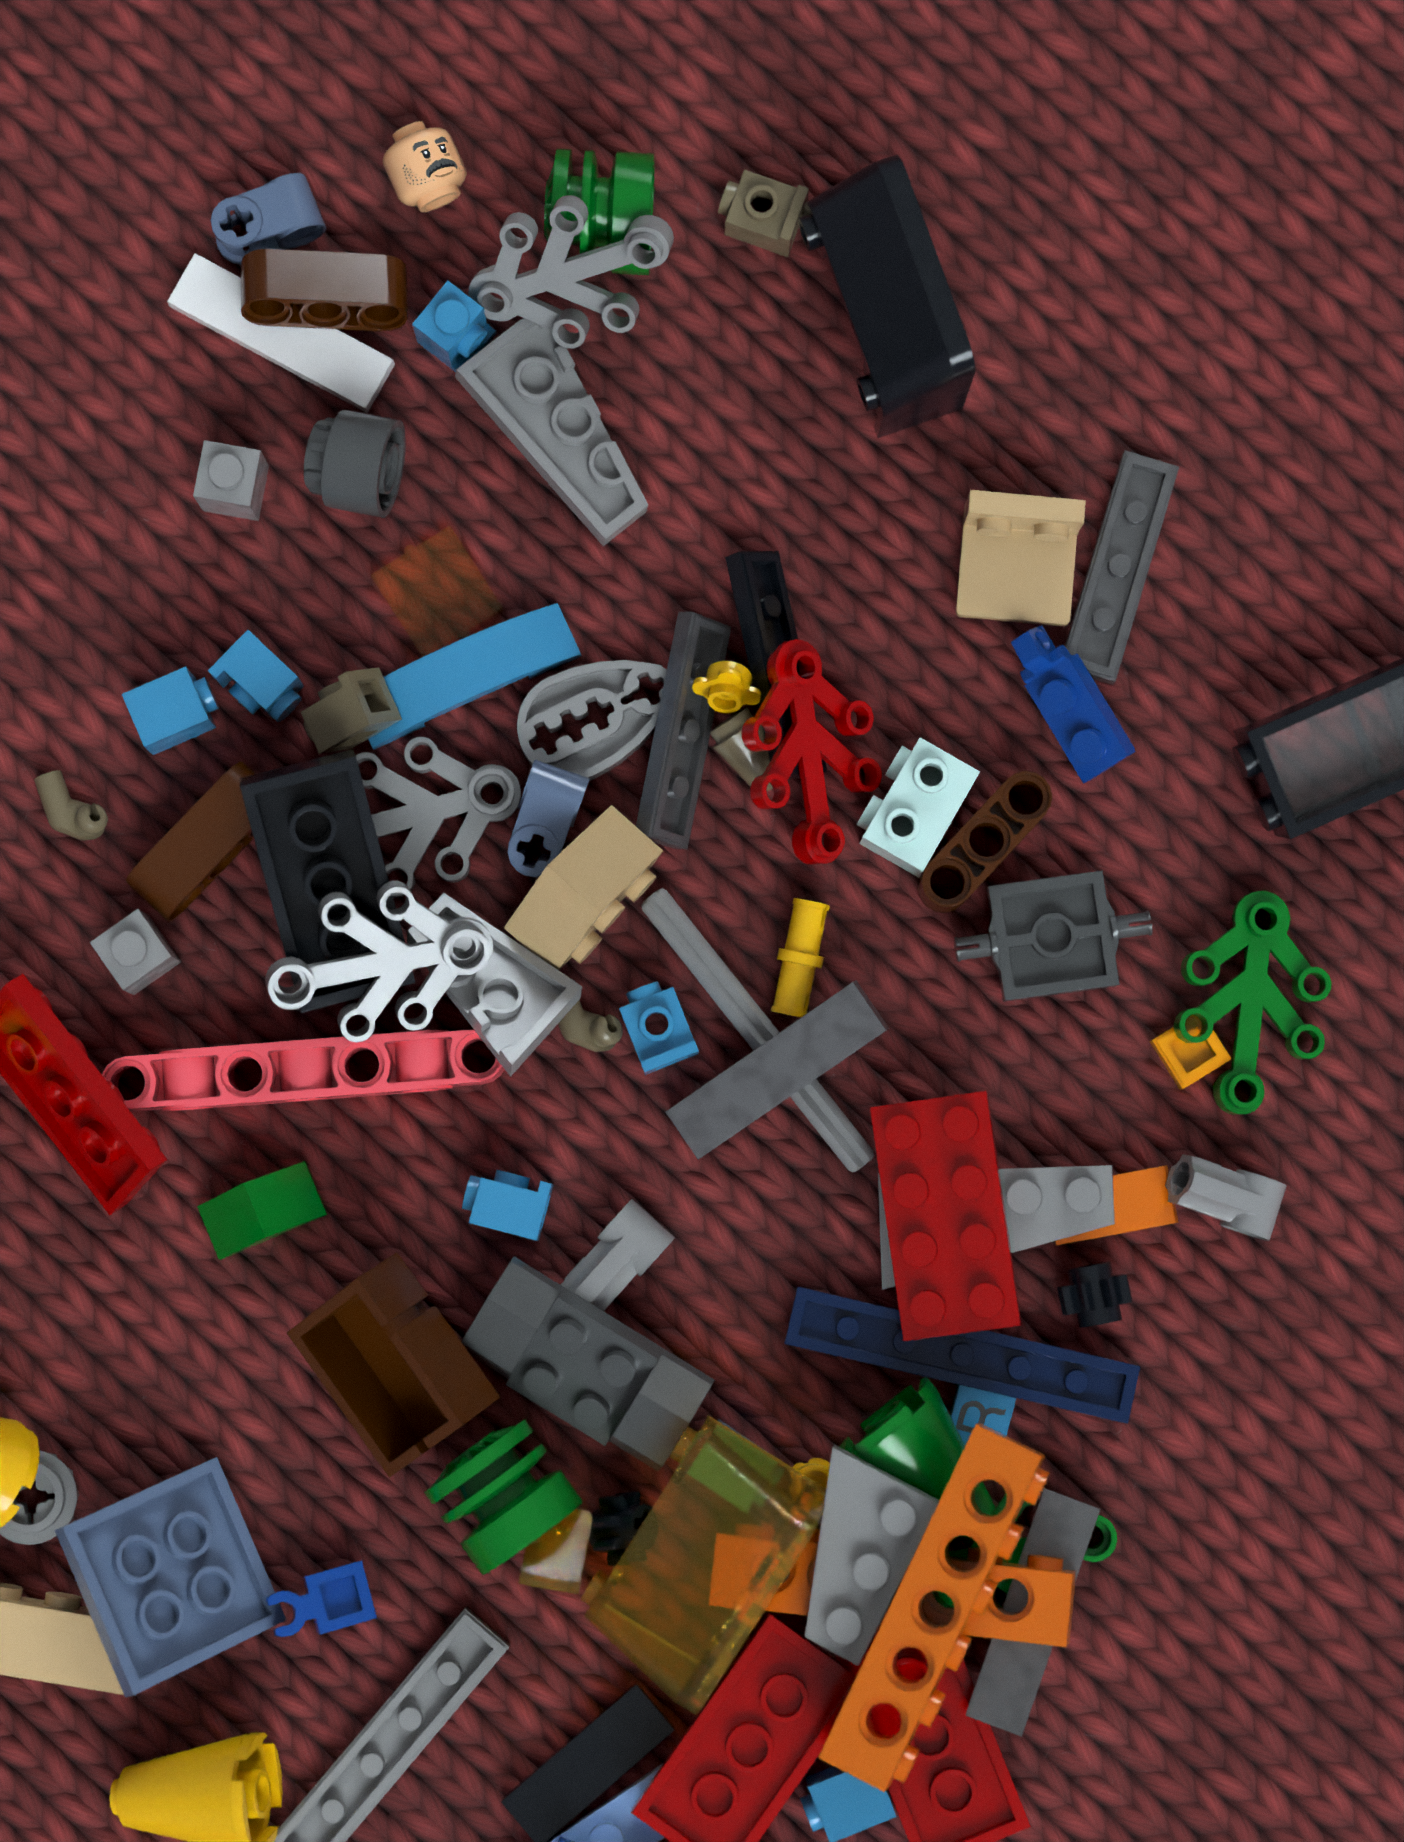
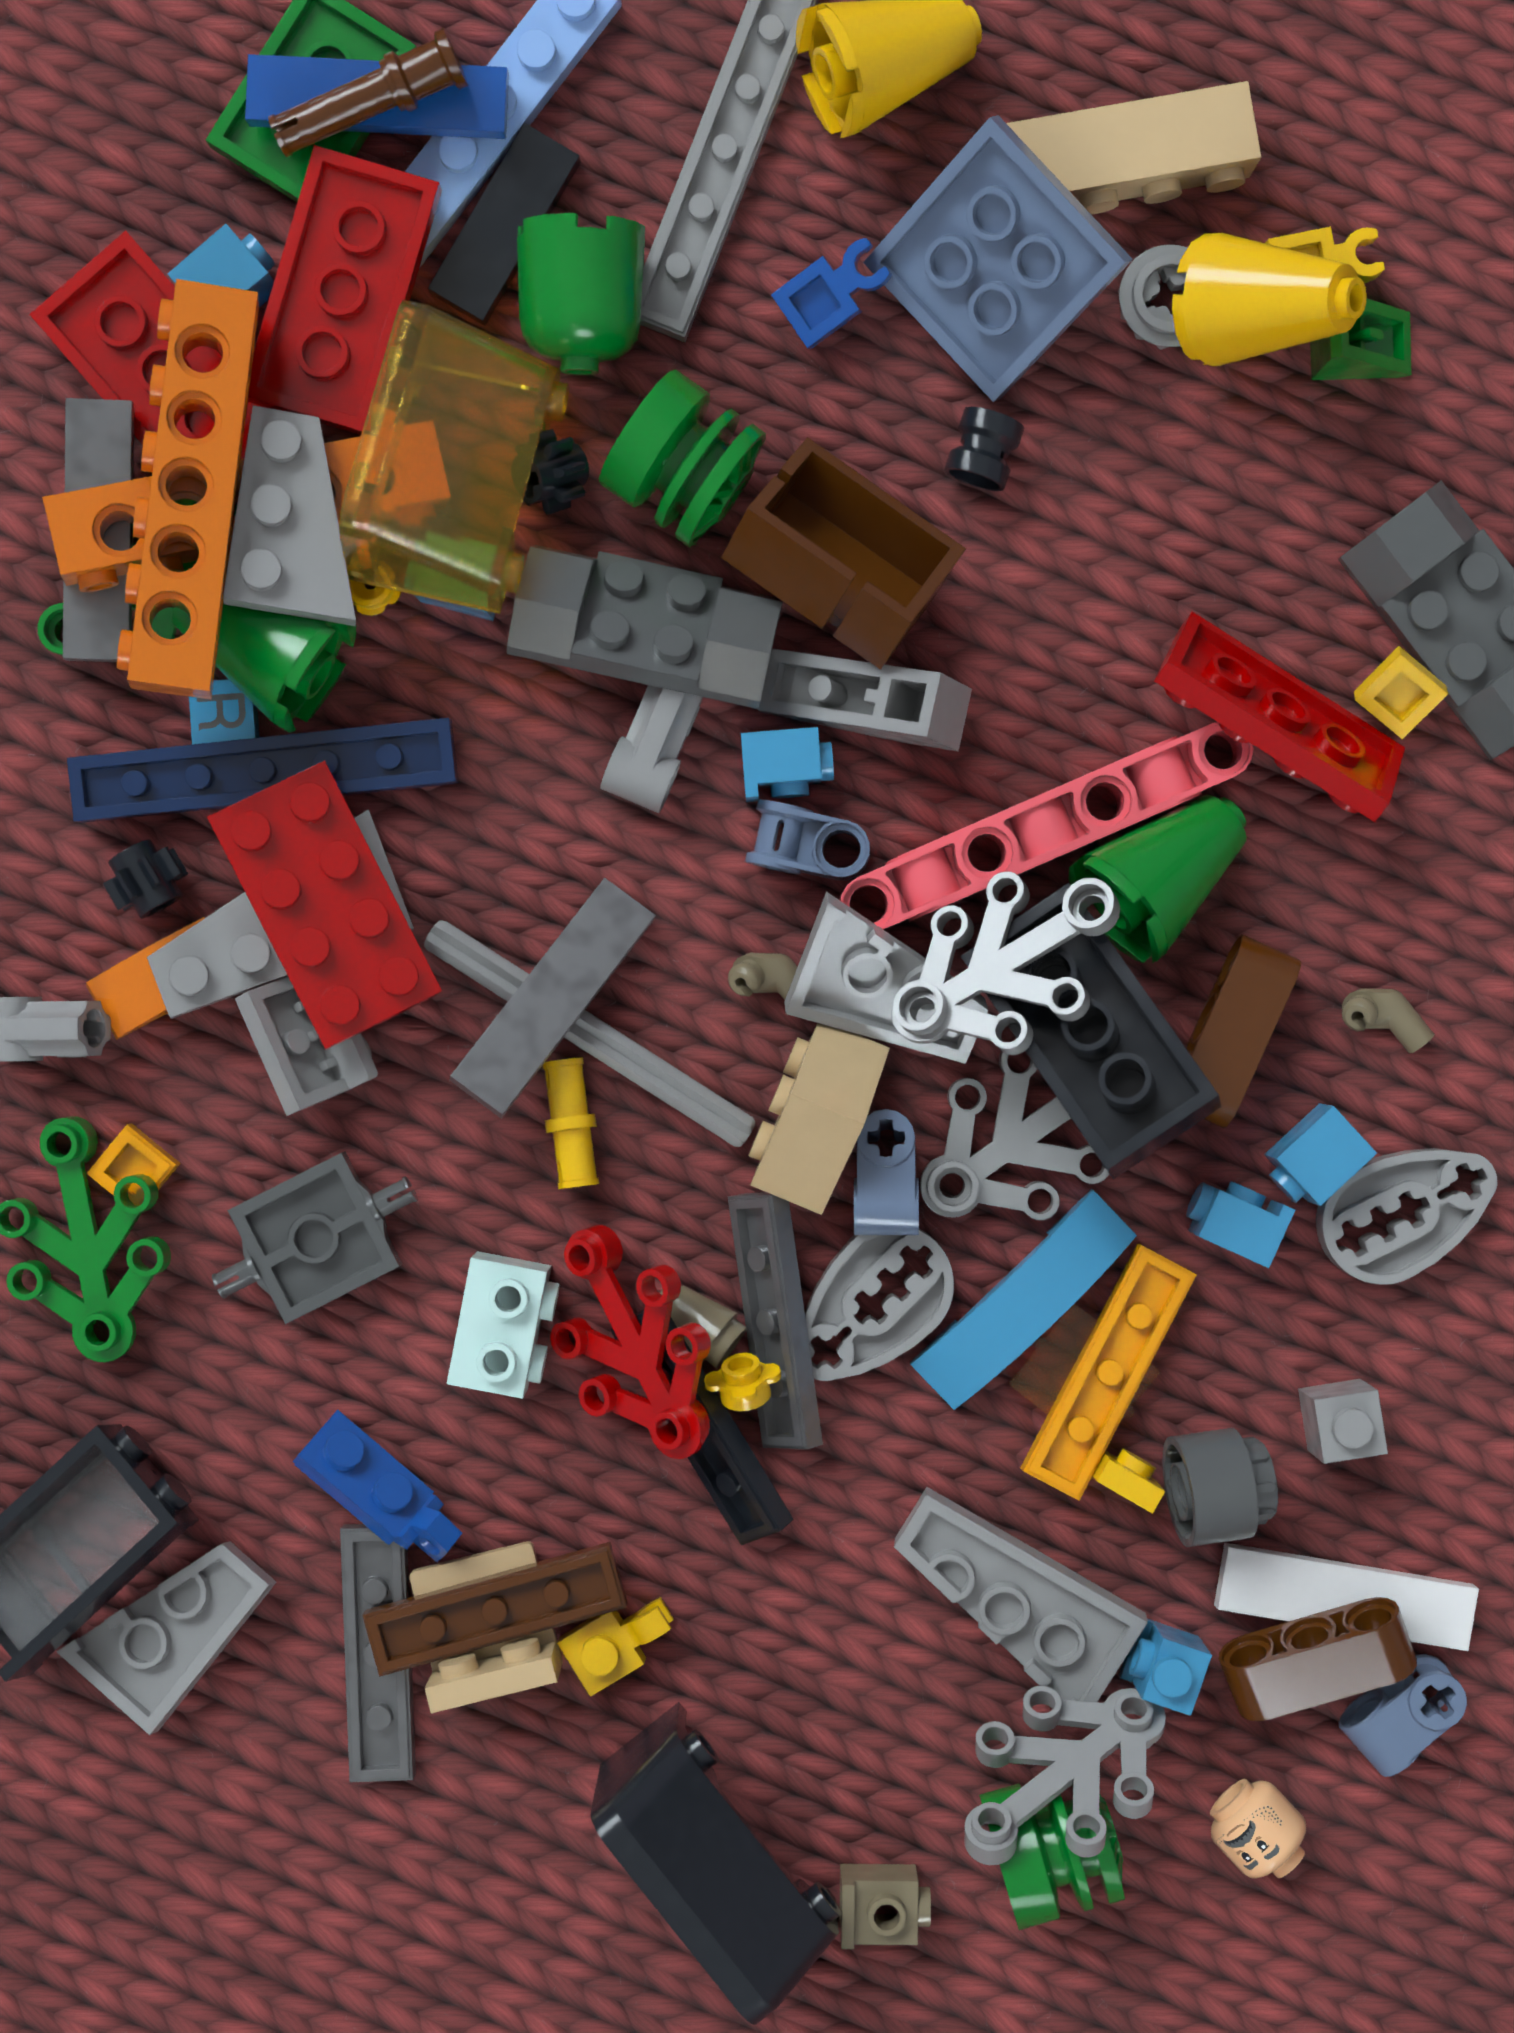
camera: 170 degrees right, 5 degrees up
(118, 606) = (1408, 1247): none -> light grey piece
(135, 952) = (1264, 889): light grey brick -> none
(215, 996) = (1164, 872): none -> green cone
(236, 1422) = (986, 443): none -> black wheel
(262, 1209) = (1036, 670): green slope -> none
(350, 711) = (1129, 1219): dark tan brick -> none
(416, 587) = (1108, 1372): none -> light orange tile
(418, 1233) = (862, 699): none -> light grey slope
(429, 495) = (1130, 1478): none -> yellow plate
(516, 1130) = (803, 841): none -> sand blue piece
(541, 1675) = (580, 289): none -> green cylinder
(559, 1555) = (601, 410): clear yellow slope -> none
(664, 1049) = (674, 981): dark azure brick -> none
(921, 504) = (609, 1647): none -> yellow plate
(997, 817) = (399, 1336): reddish brown beam -> none
(1005, 569) = (494, 1609): none -> reddish brown tile
(1015, 1100) = (294, 1053): none -> light grey bracket
(1291, 640) = (167, 1639): none -> light grey wing

